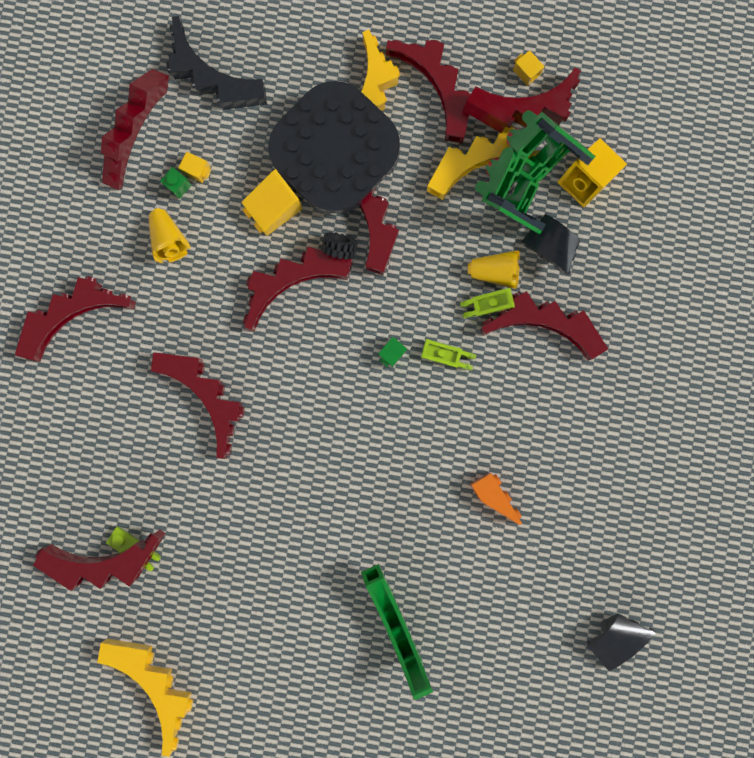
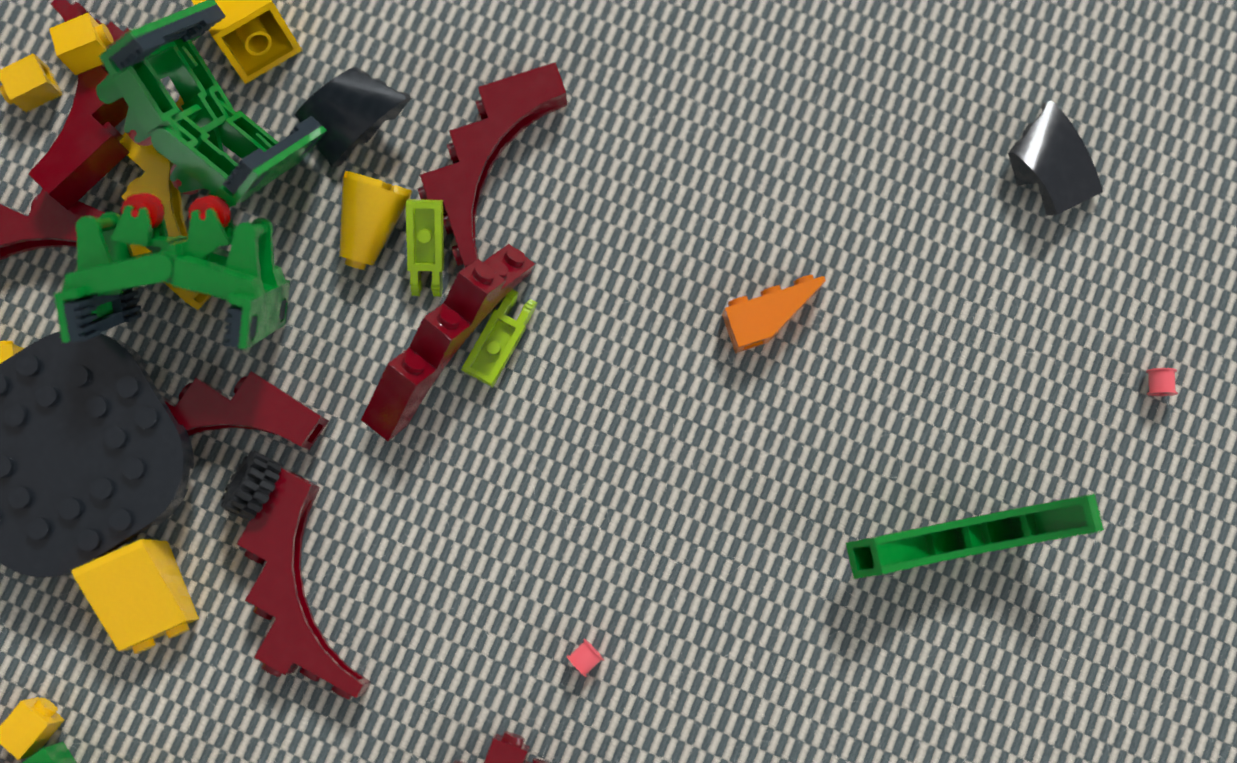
camera: 80 degrees left, 5 degrees down
(290, 439) = (585, 658): none -> coral axle
(392, 352) = (471, 435): green brick -> none
(441, 325) = (440, 336): none -> dark red arch
(445, 187) = (106, 273): none -> green container
(507, 722) = (1161, 382): none -> coral axle
(554, 93) = (81, 42): none -> yellow brick

